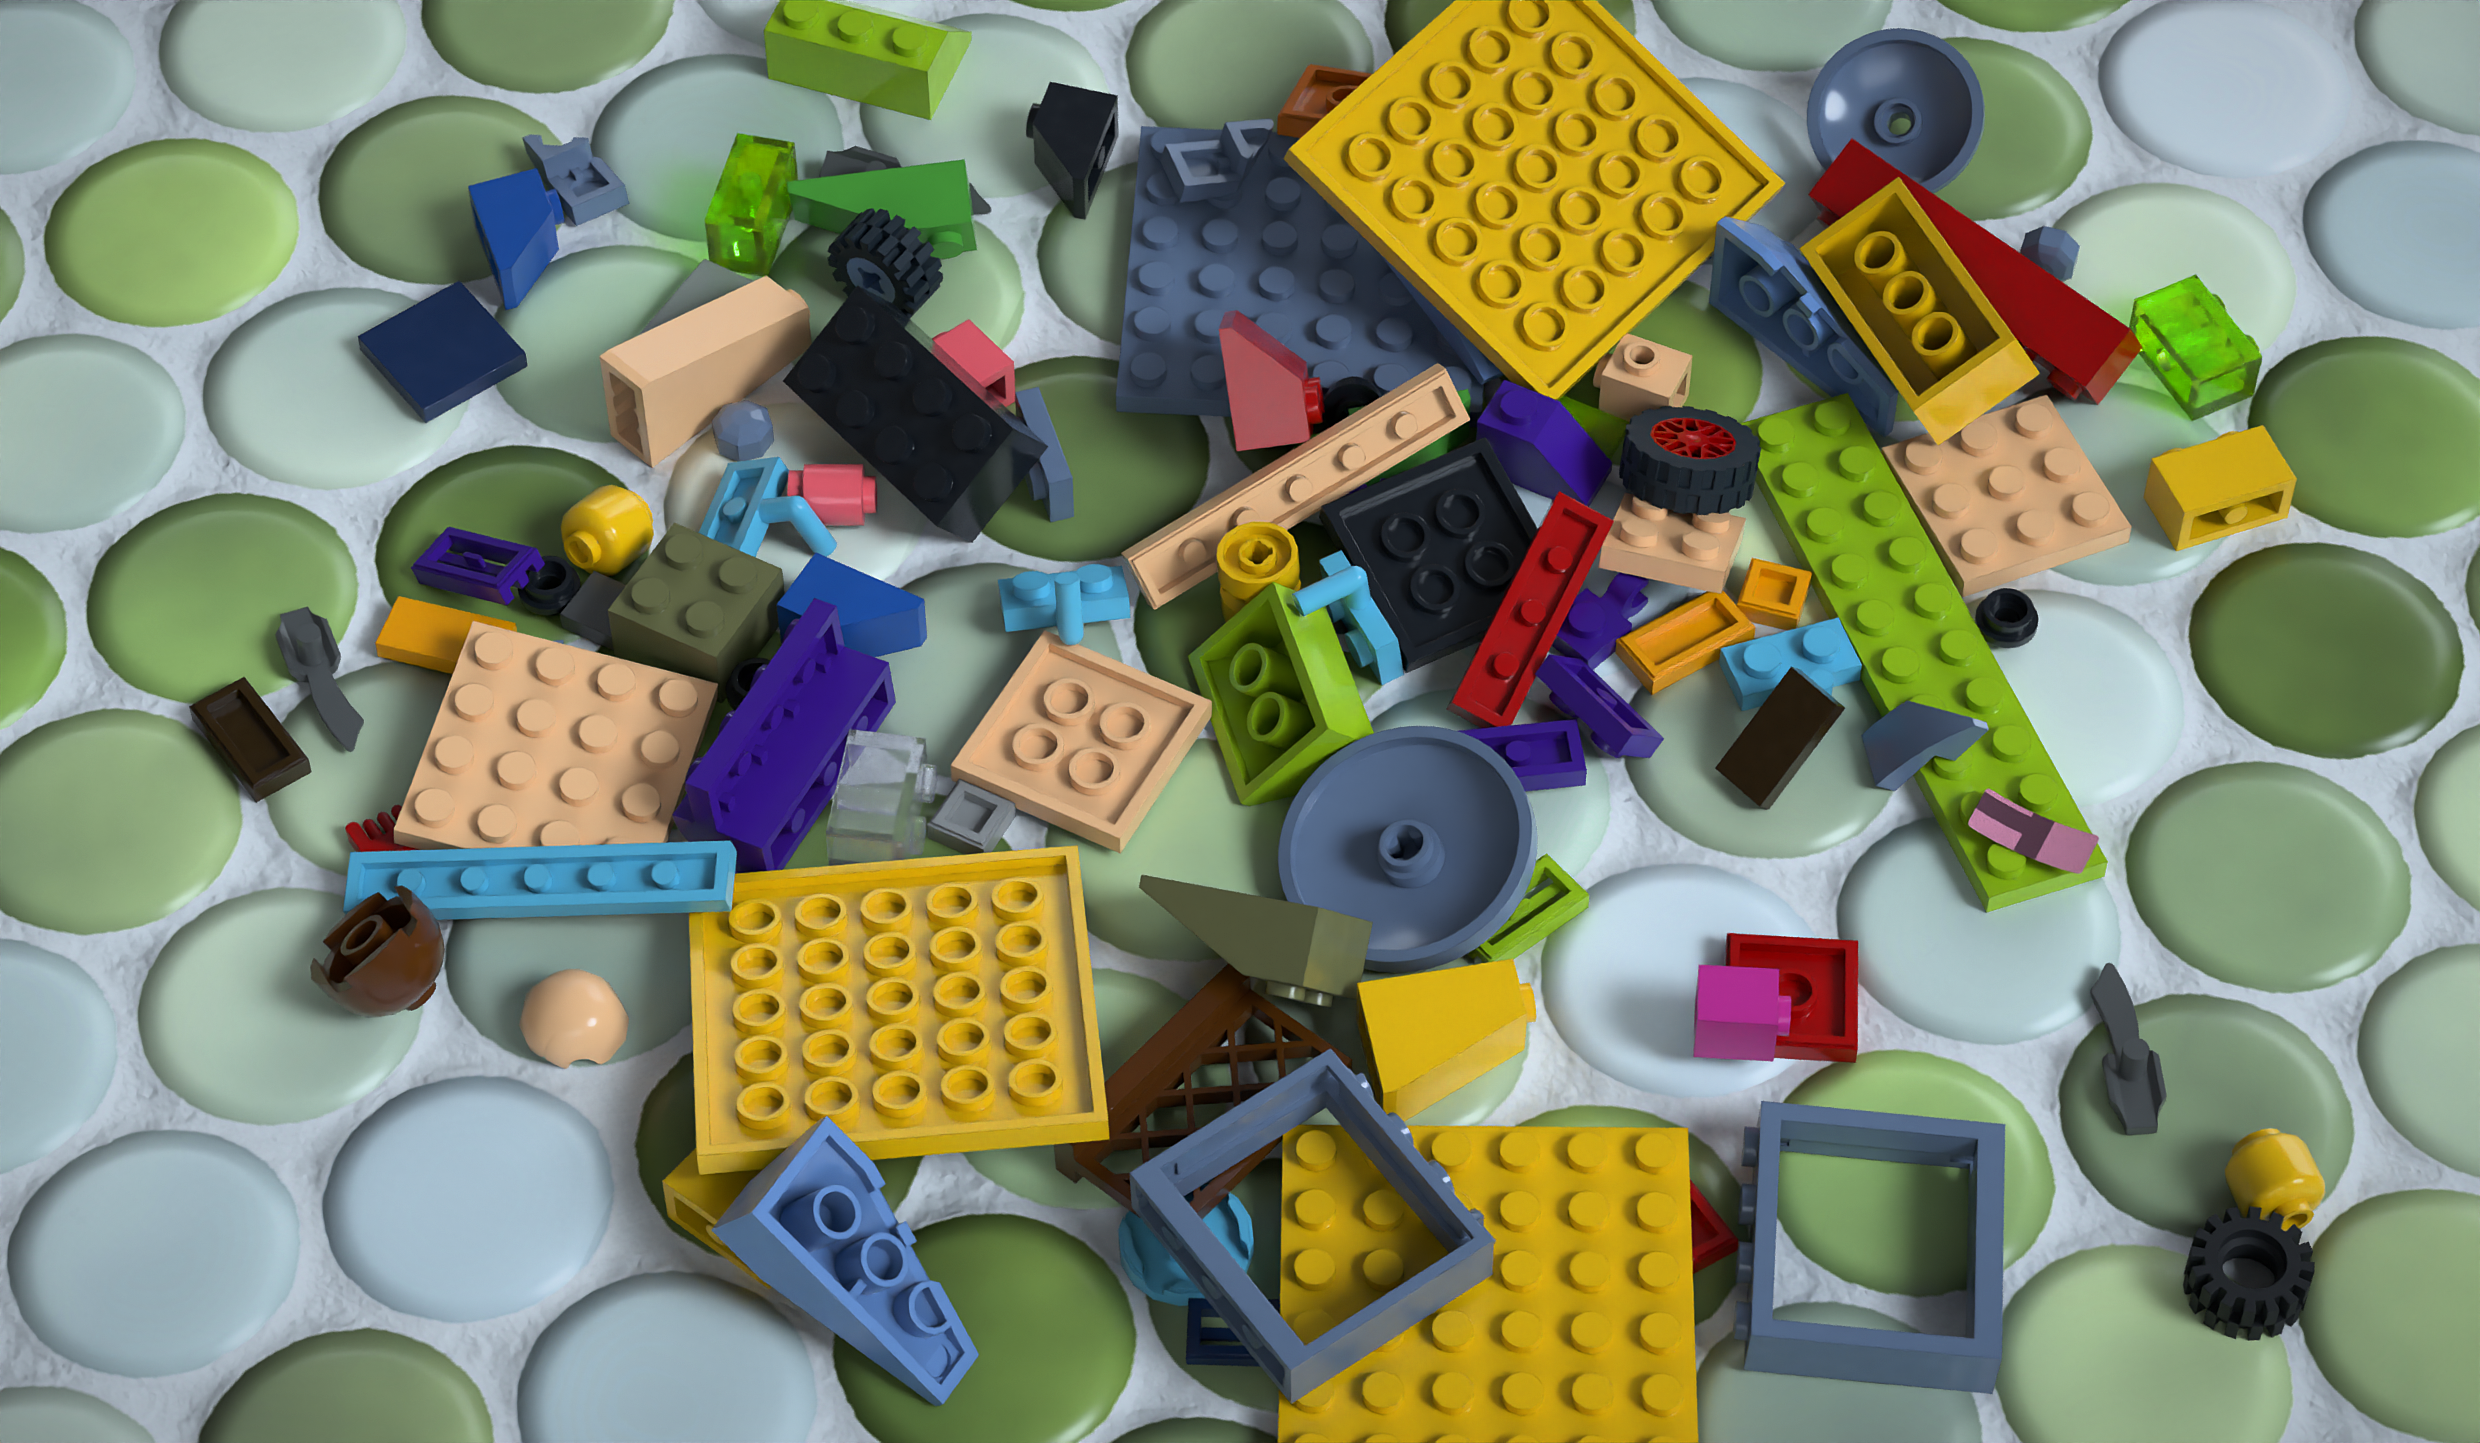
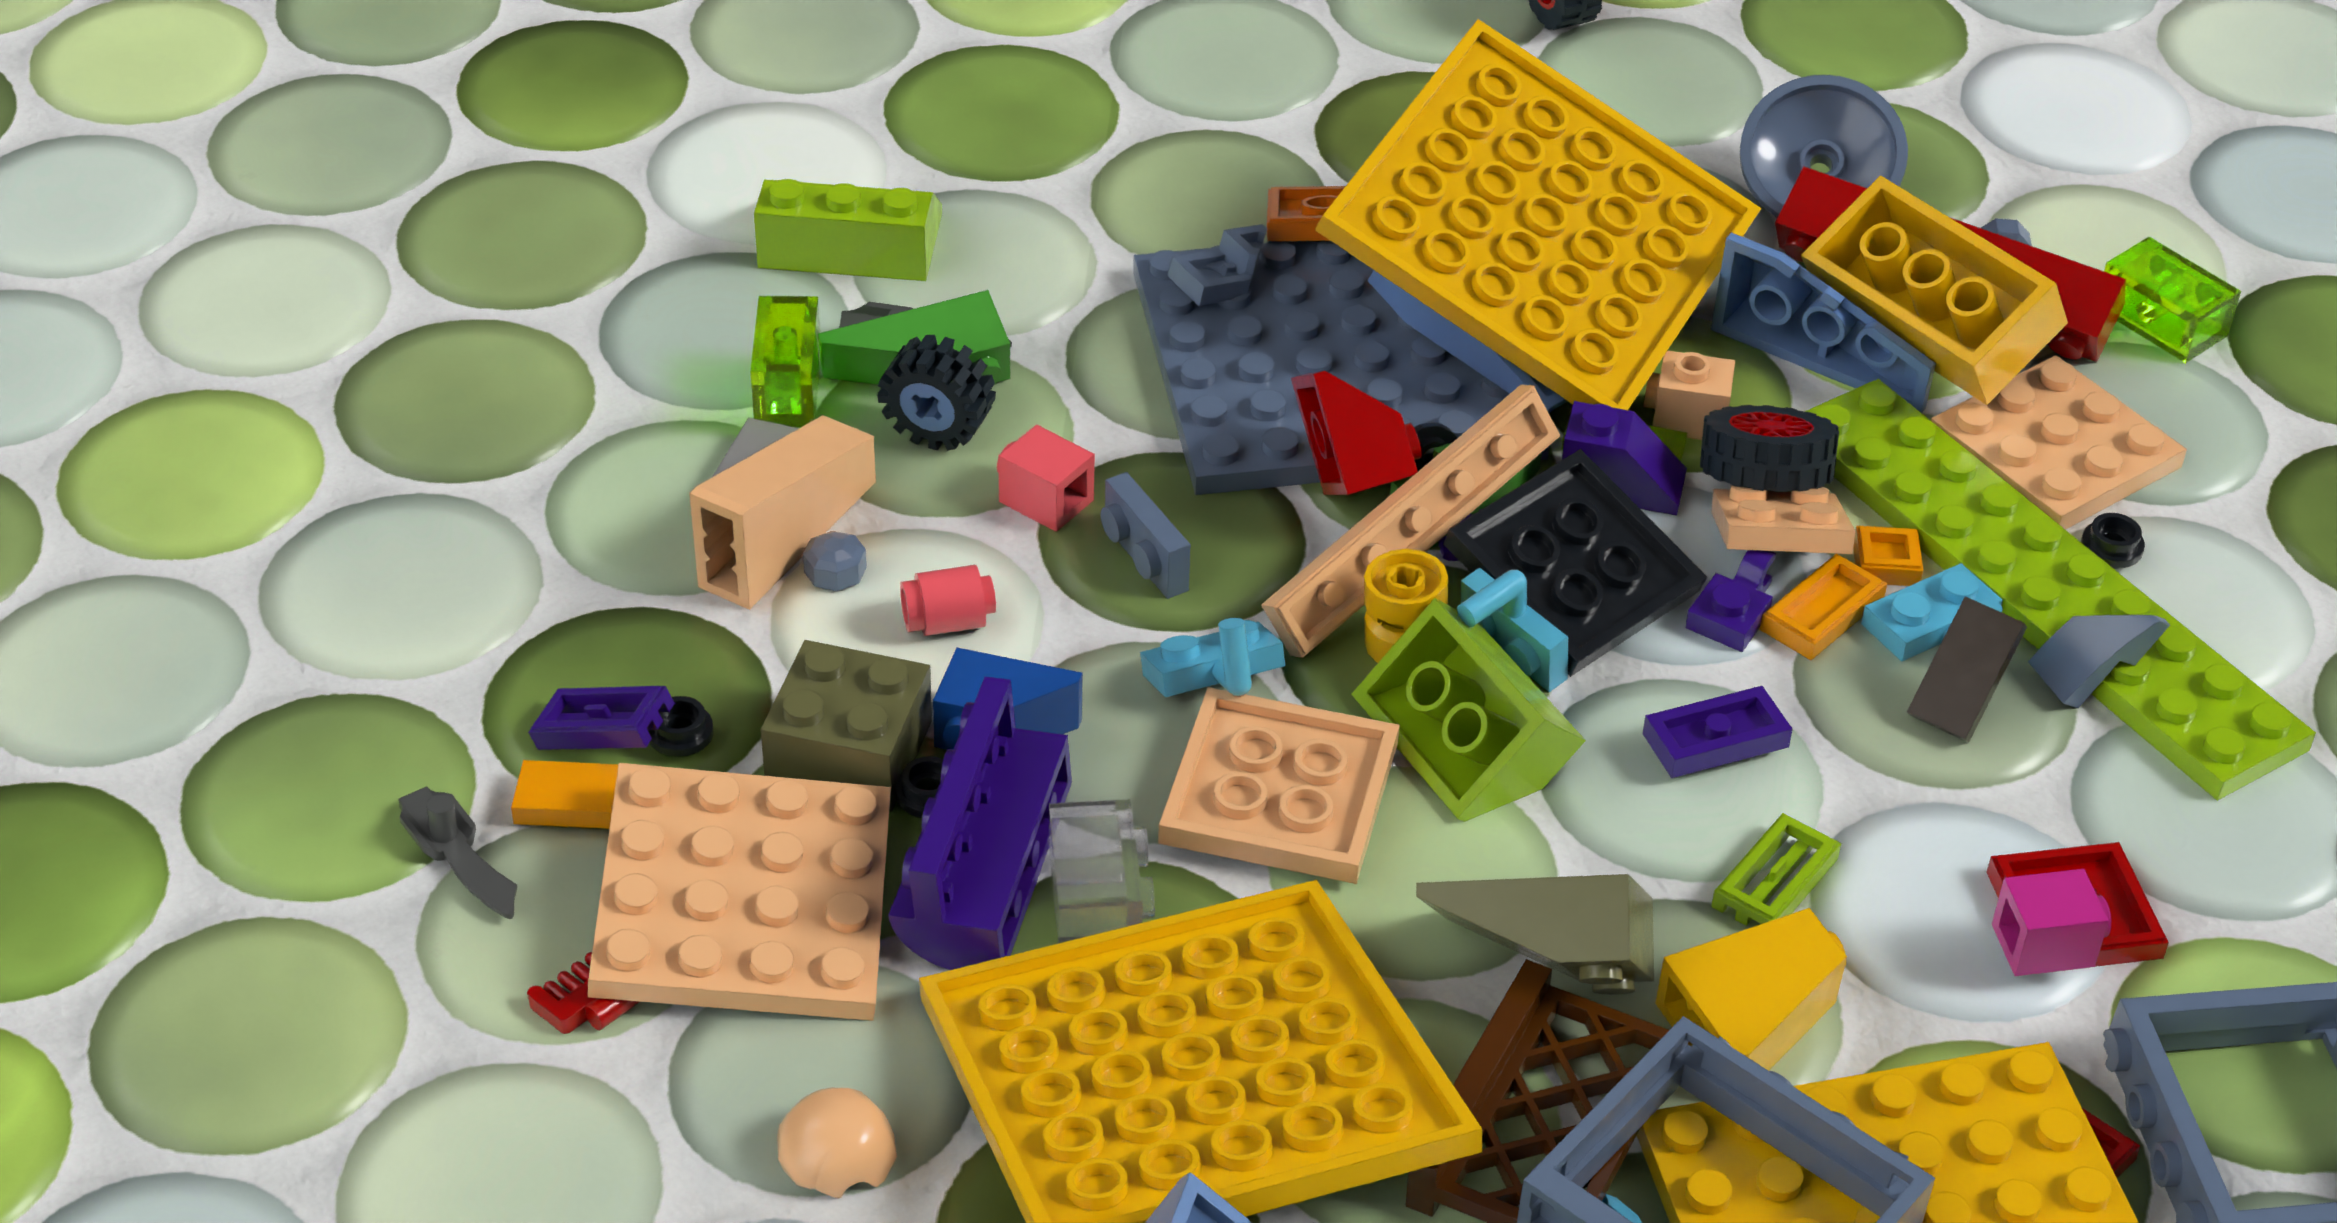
camera: 15 degrees left, 10 degrees down
(250, 739) = (397, 924): dark brown tile -> none
(382, 956) = (611, 1109): reddish brown cylinder -> none
(442, 351) = (504, 535): dark blue tile -> none
(516, 230) = (550, 417): blue slope -> none
(552, 879) = (762, 1005): medium azure plate -> none
(582, 181) = (594, 371): sand blue slope -> none
(589, 608) = (735, 742): dark grey tile -> none
(607, 530) = (728, 665): yellow head -> none
(752, 500) = (866, 617): medium azure plate -> none
(915, 414) = (1015, 510): black brick -> none
(971, 819) = (1191, 876): light grey tile -> none
(1073, 141) = (1073, 274): black slope -> none
(1417, 838) = (1671, 801): sand blue dish -> none
(1530, 613) = (1681, 598): red plate -> none
(1587, 696) = (1797, 688): dark purple plate -> none
(2032, 833) = (2243, 717): clear pink sticker -> none
(2219, 487) = (2249, 405): yellow brick -> none

